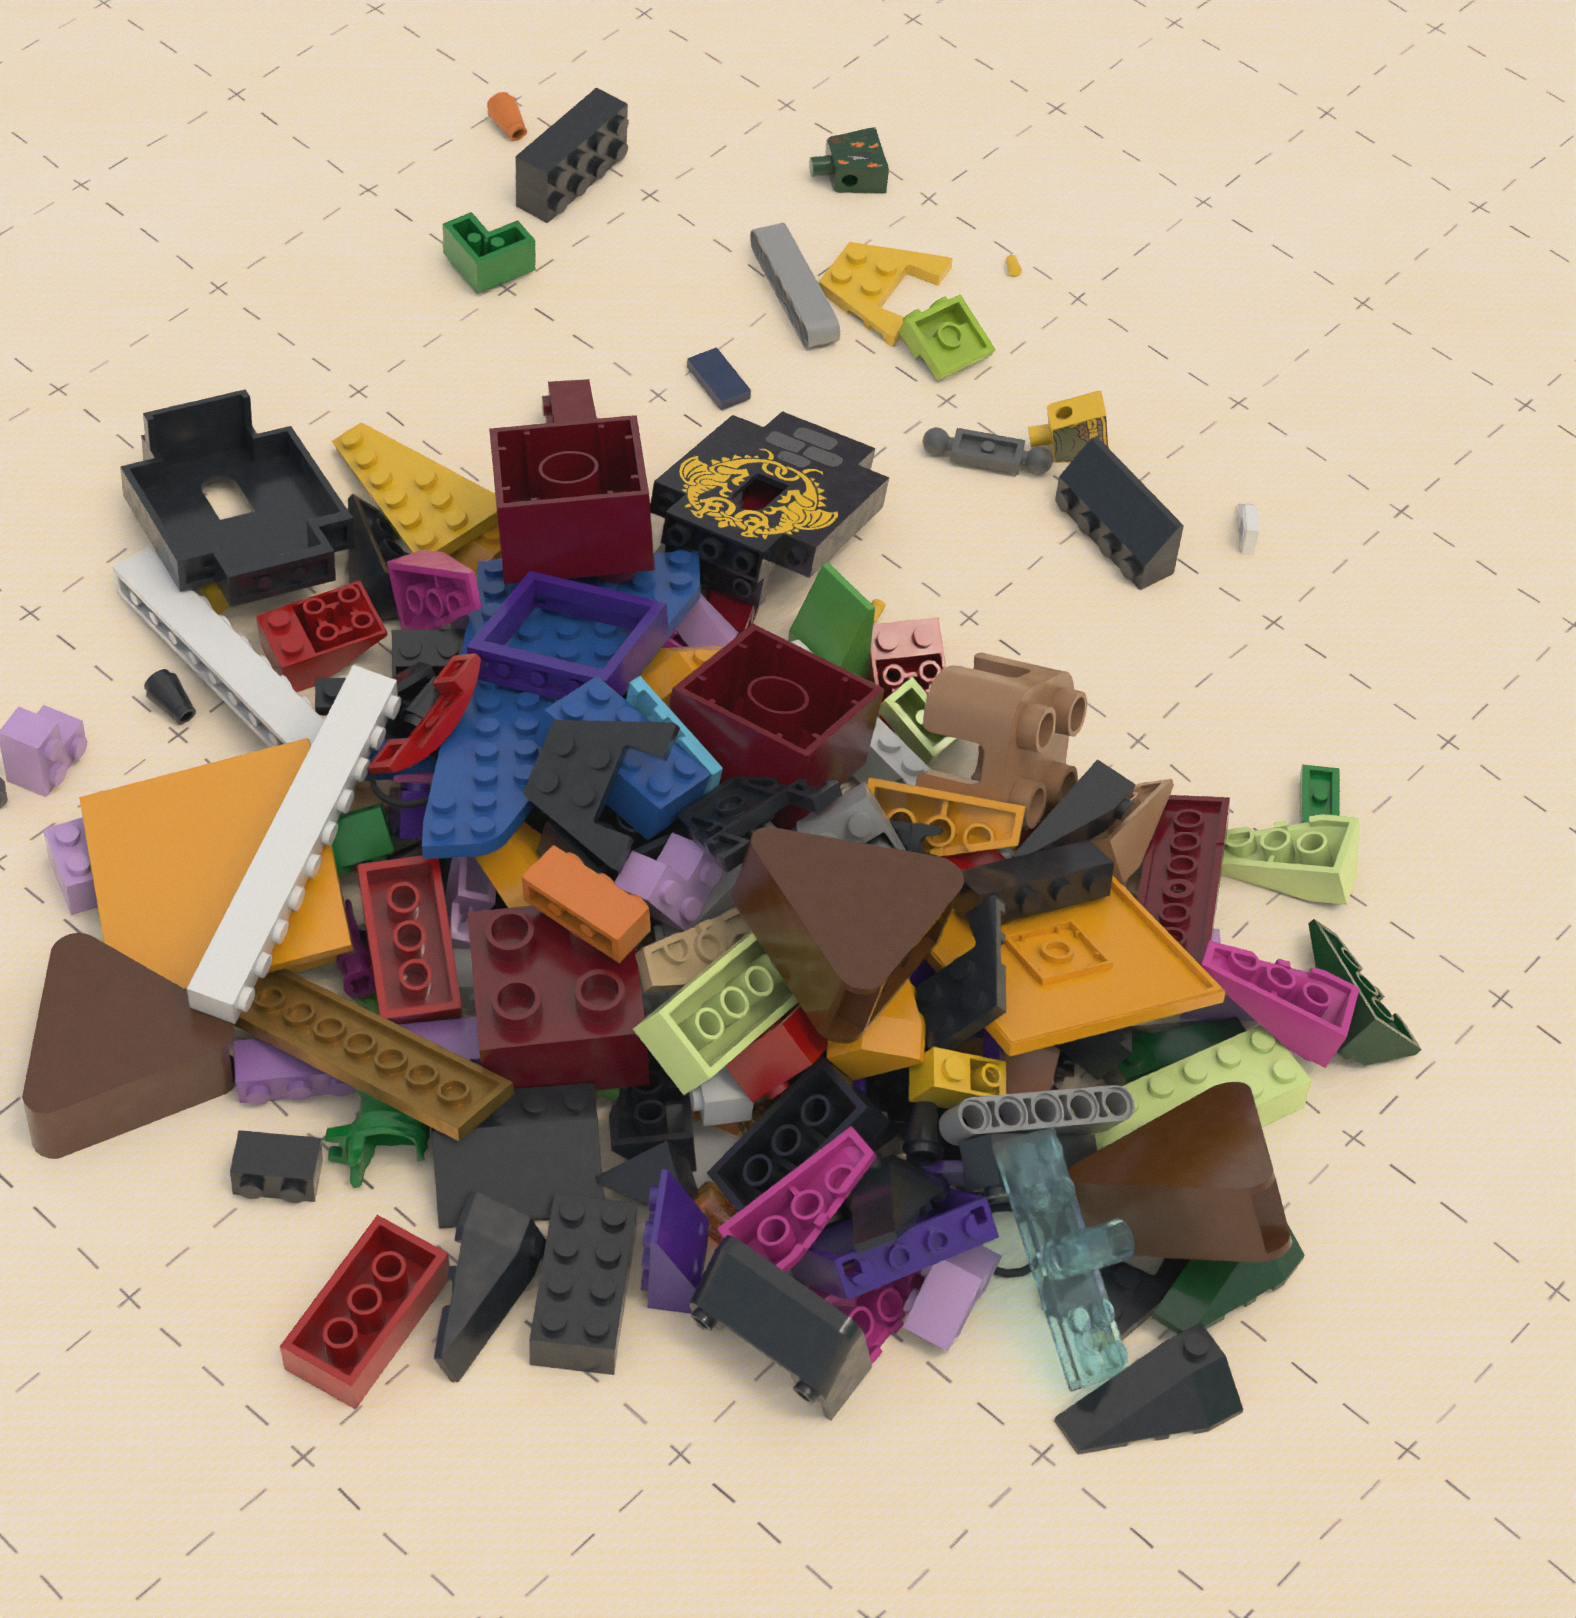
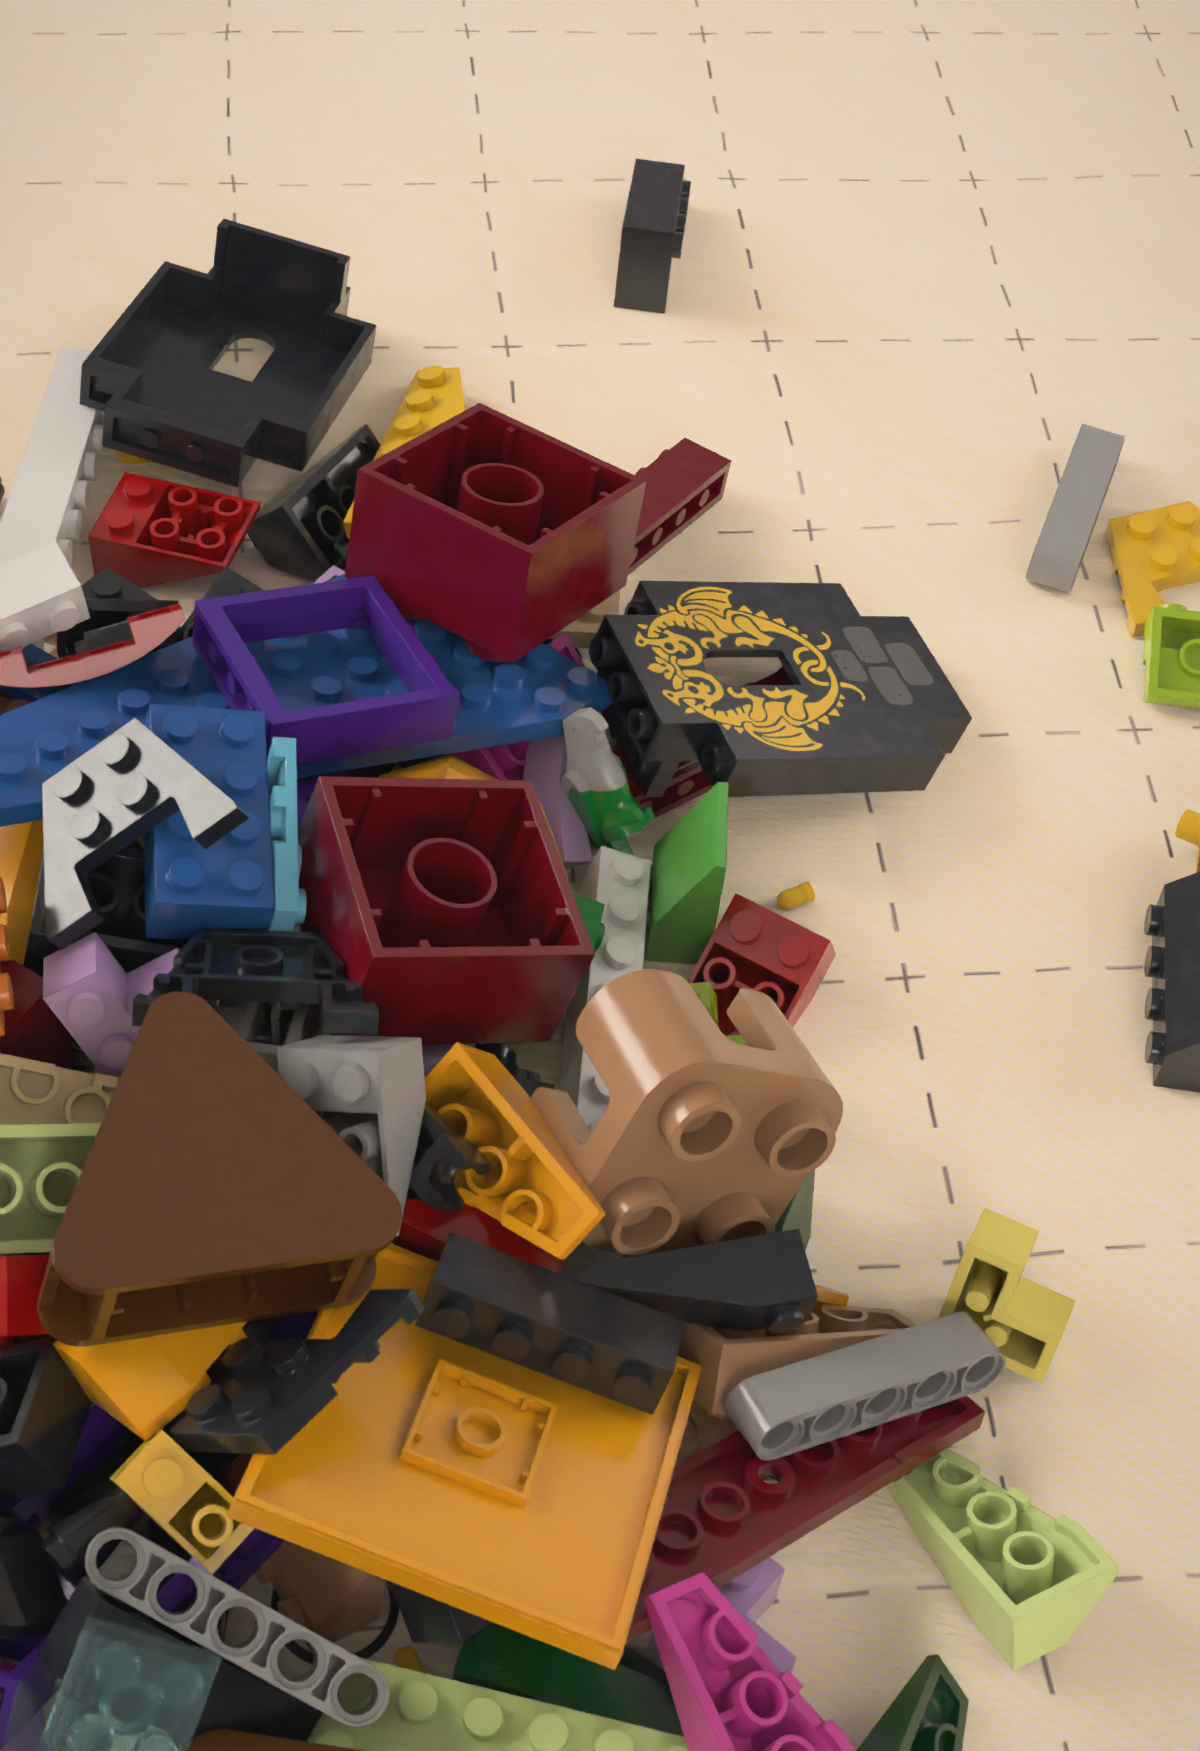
camera: 40 degrees right, 0 degrees up
(375, 258) = (651, 234): none -> black wedge
(432, 589) = (309, 541): dark pink wedge -> none
(488, 256) = (772, 293): green brick -> none
(506, 114) = (943, 182): orange cone -> none
(571, 155) = (959, 246): black brick -> none
(718, 378) = (890, 550): dark blue tile -> none
(739, 607) = (599, 783): none -> animal
(987, 450) = (1119, 809): dark grey plate -> none
(1175, 820) = (863, 1385): none -> light grey beam
(1183, 743) = (1011, 1310): none -> light yellow brick
(1319, 791) = (1124, 1498): green hinge -> none

